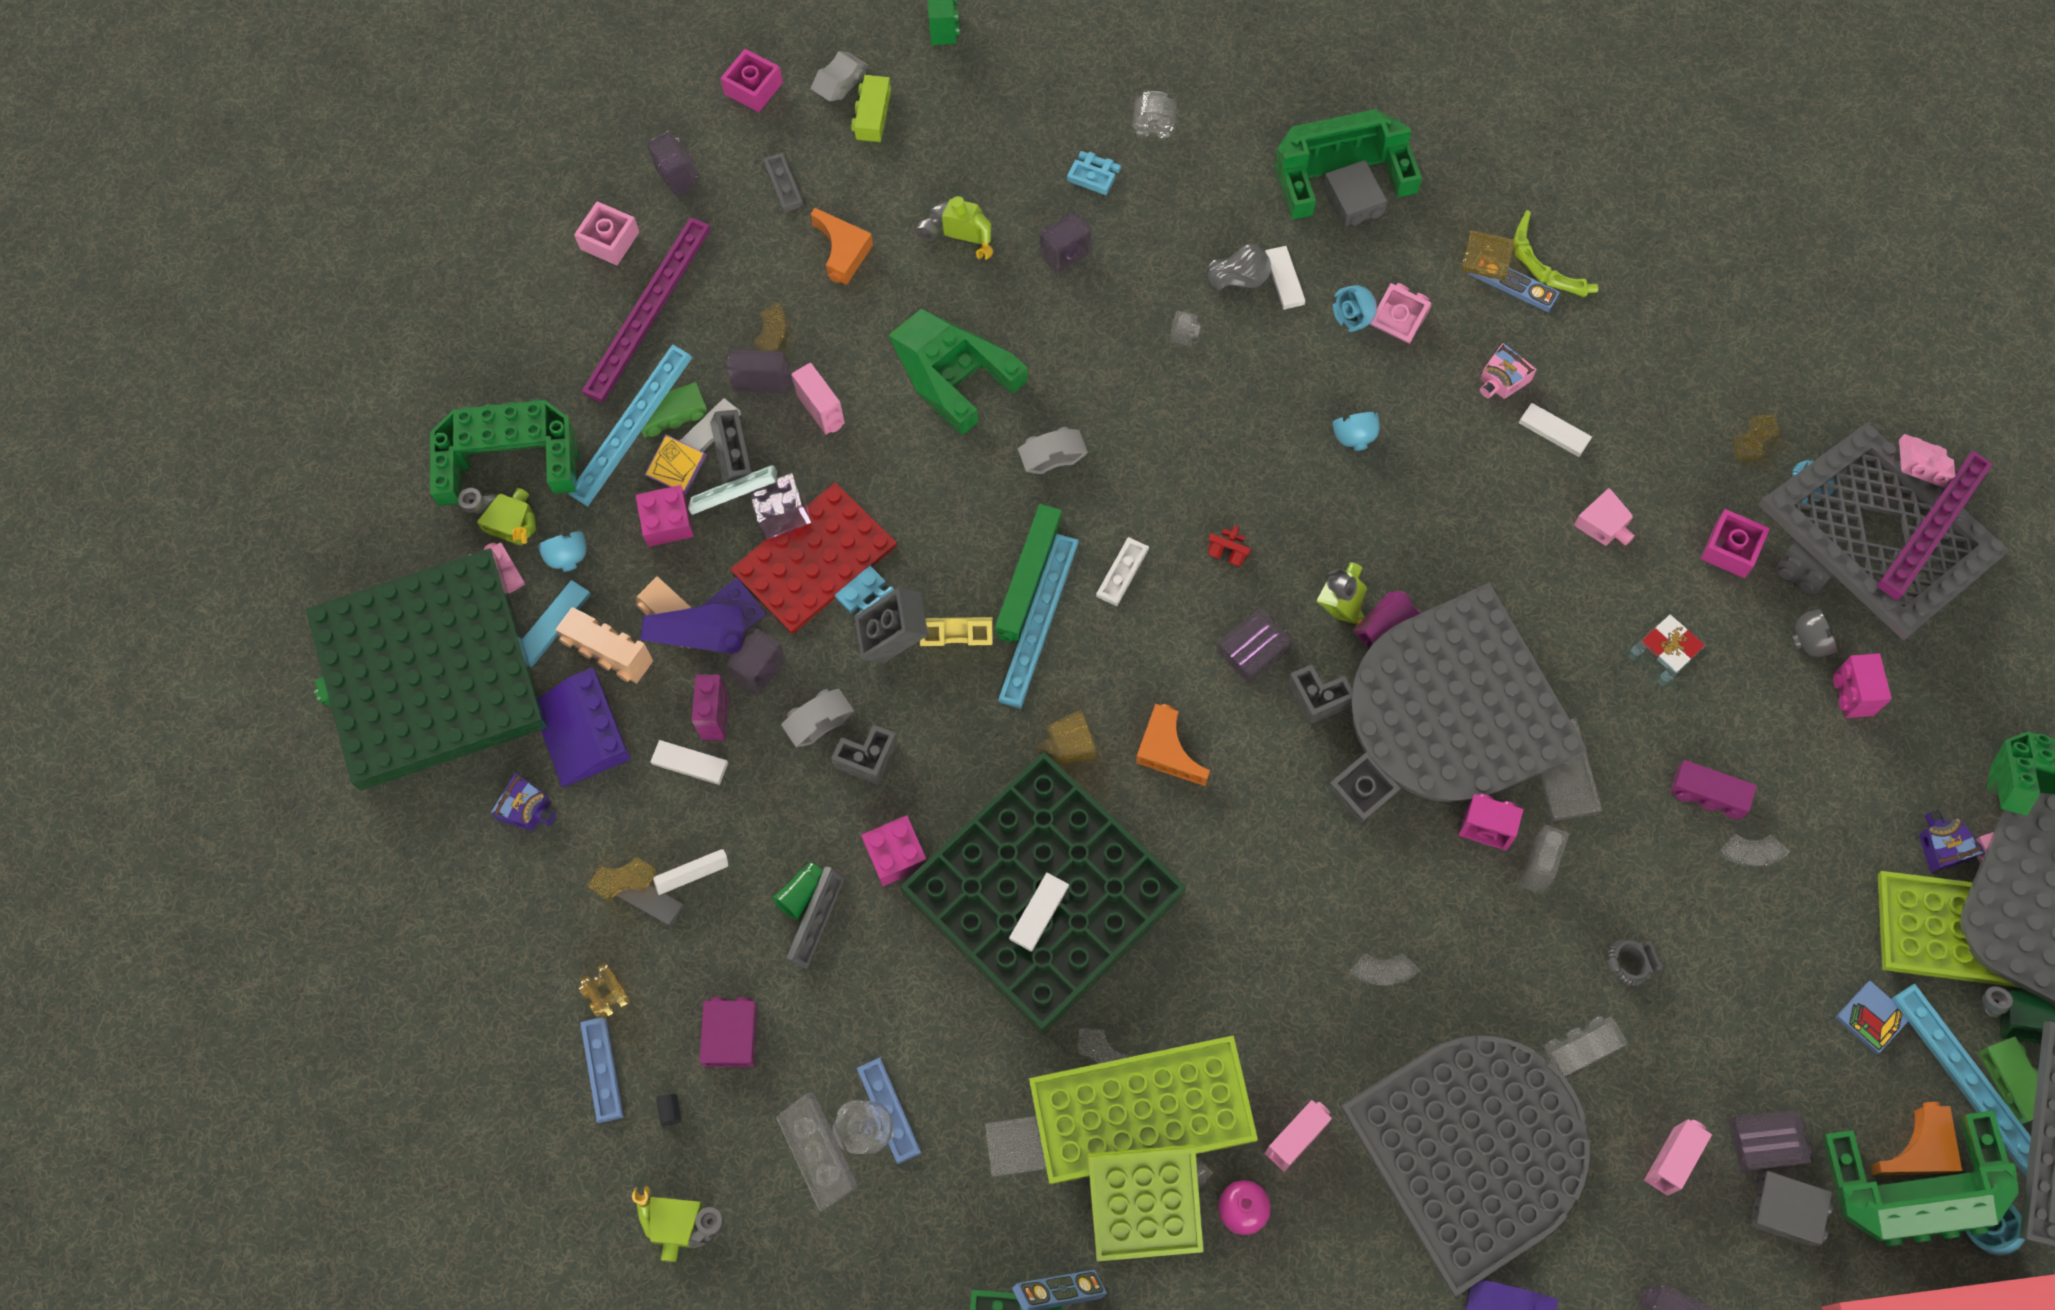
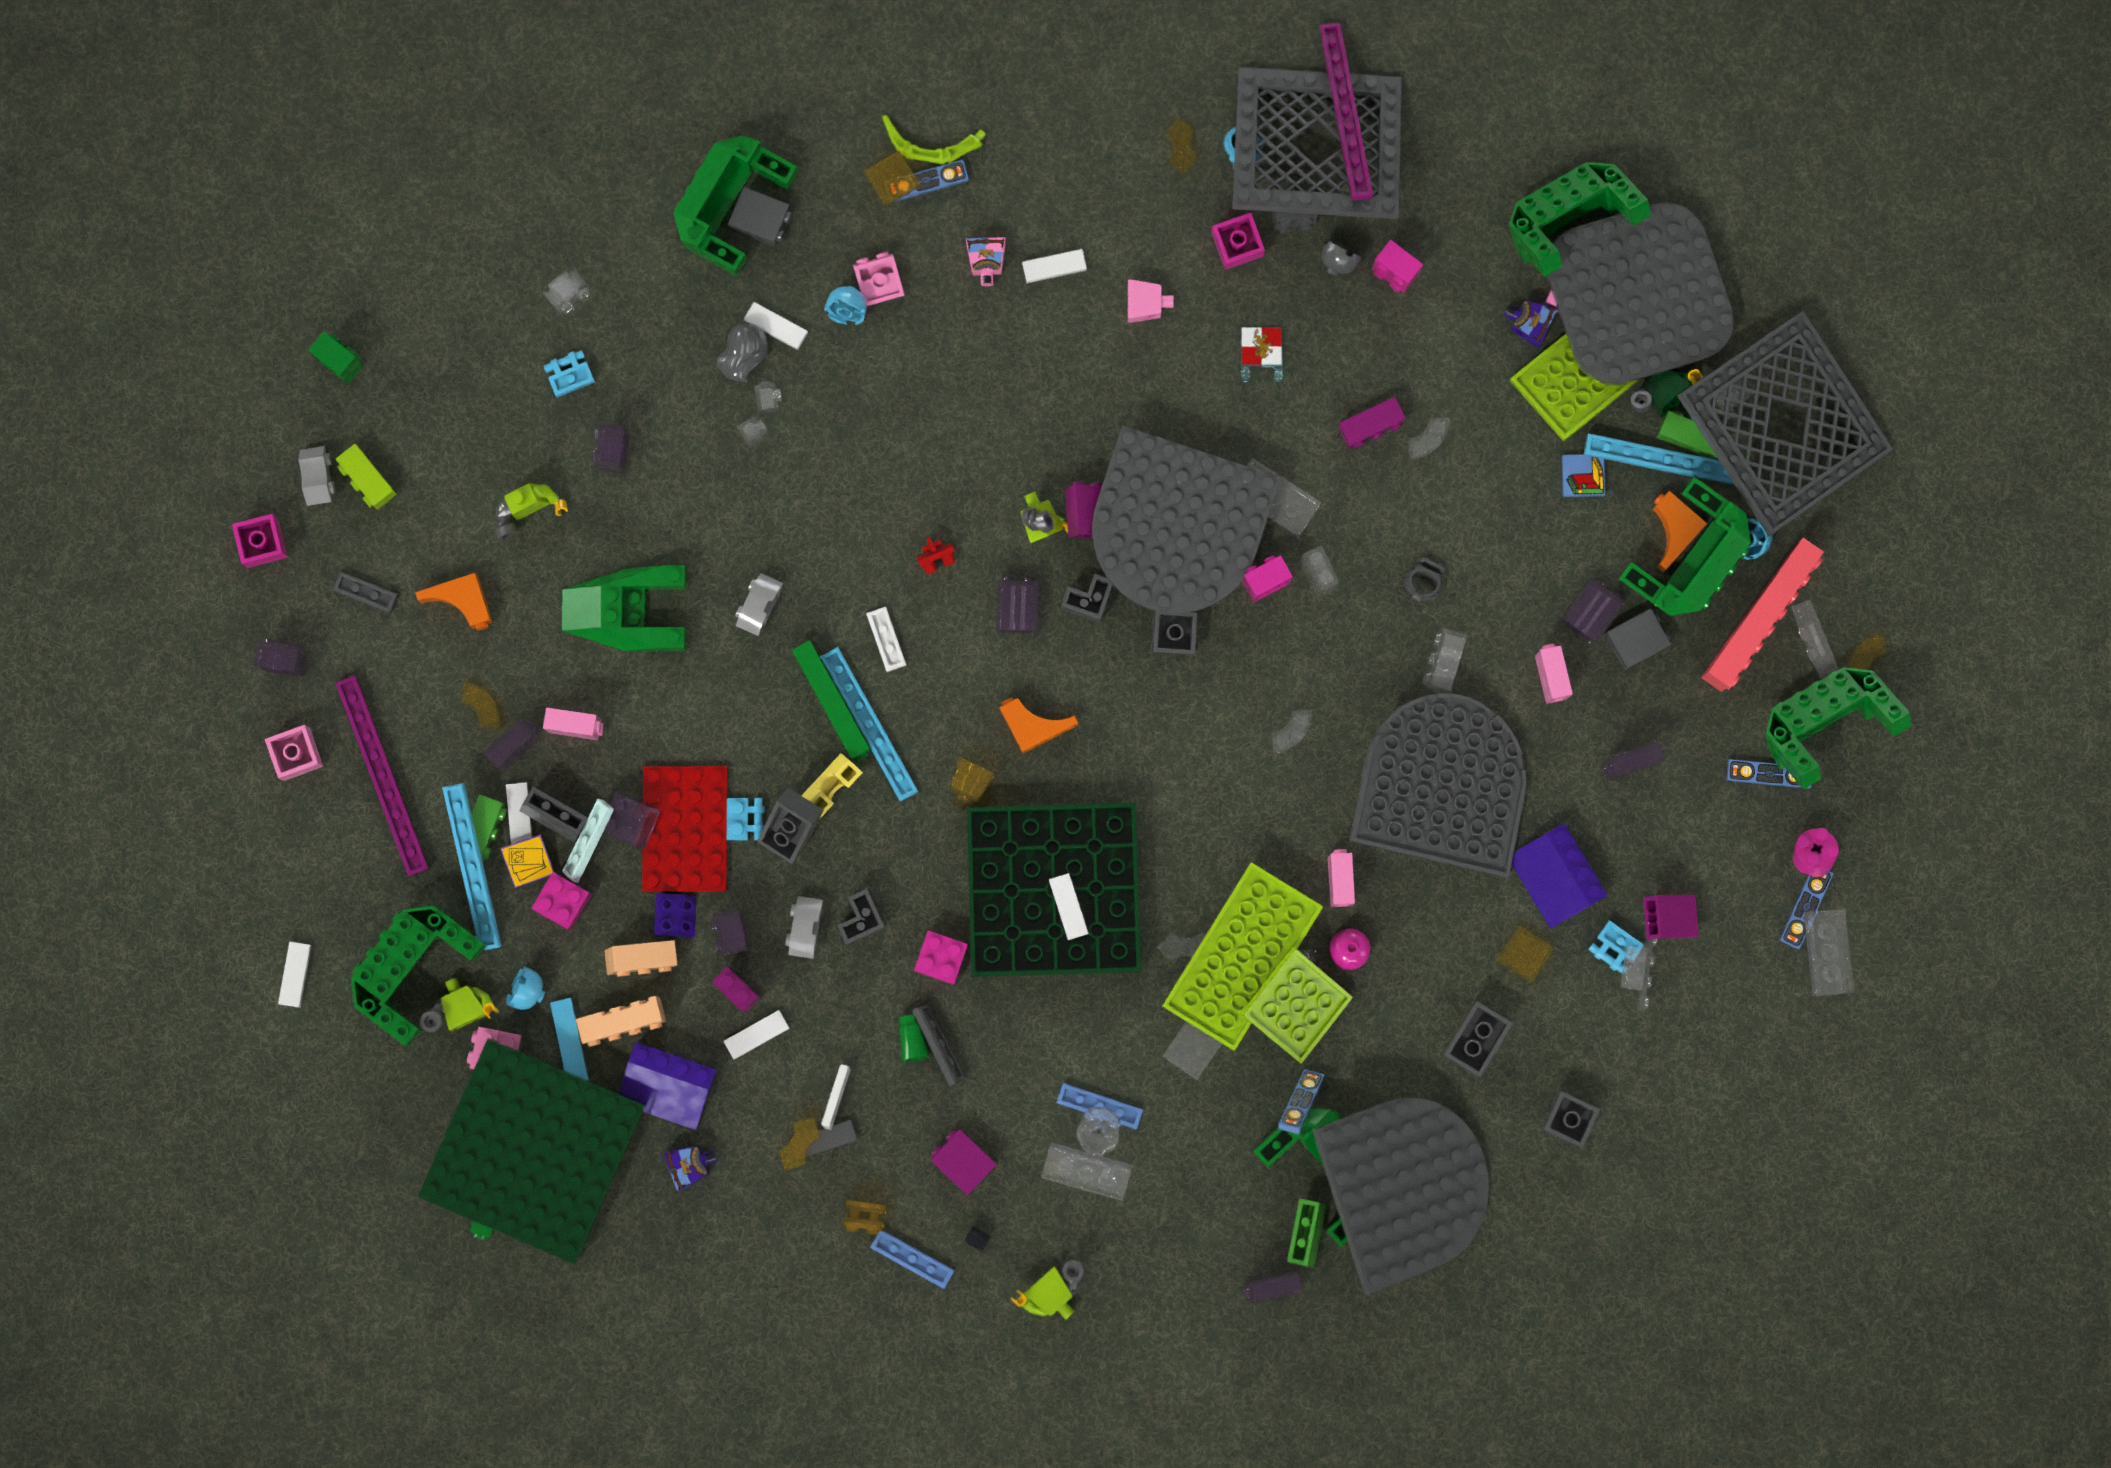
camera: 50 degrees left, 15 degrees up
(427, 381) = (294, 974): none -> white tile
(704, 627) = (676, 948): dark purple wedge -> none
(1222, 317) = (767, 397): none -> clear brick
(1357, 430) = (935, 394): medium azure cylinder -> none
(1925, 461) = (1299, 63): bright pink plate -> none

